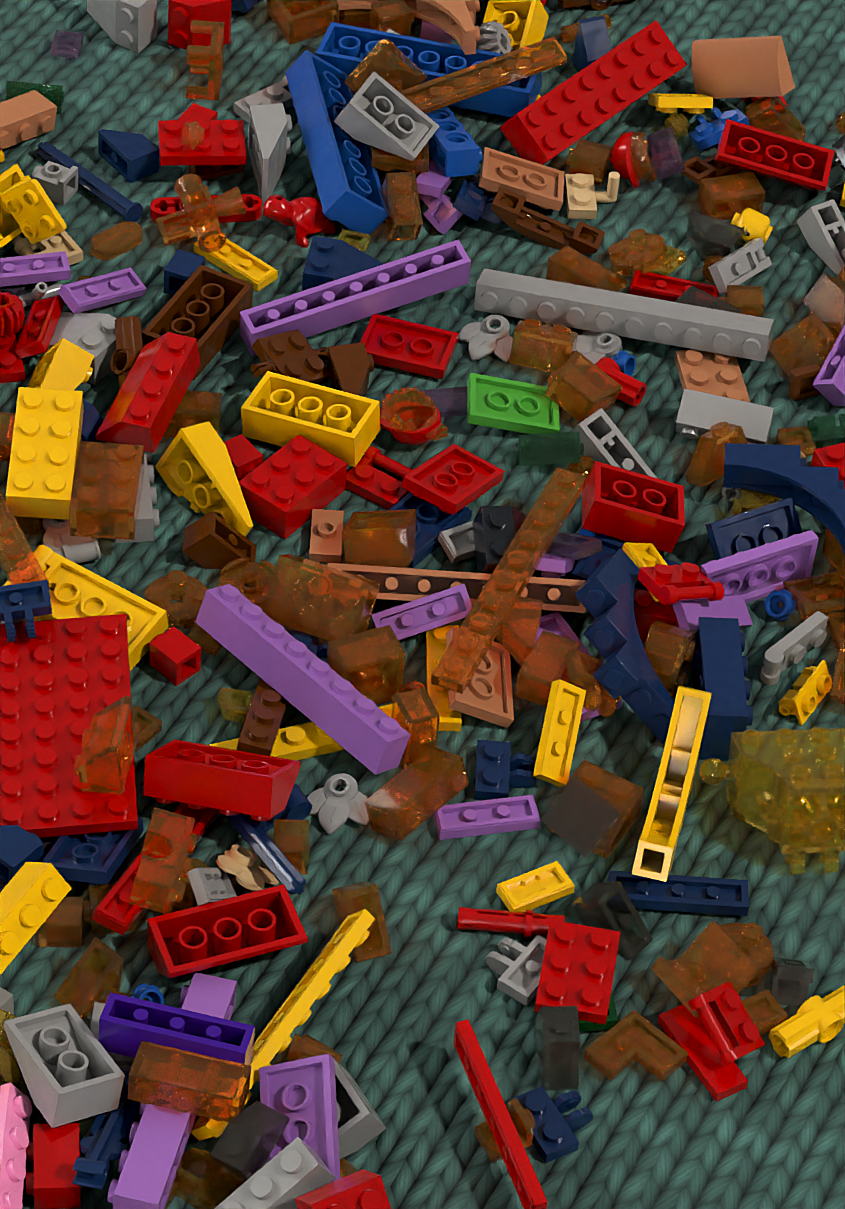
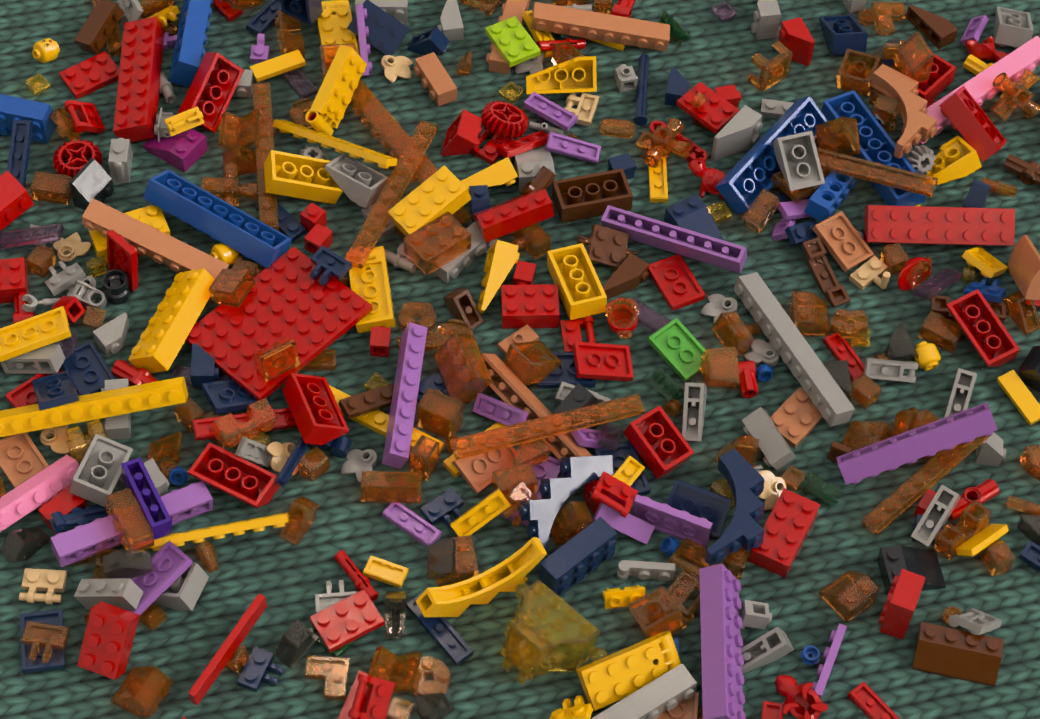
camera: 50 degrees right, 10 degrees up
(33, 210) = (582, 84): yellow bracket -> none

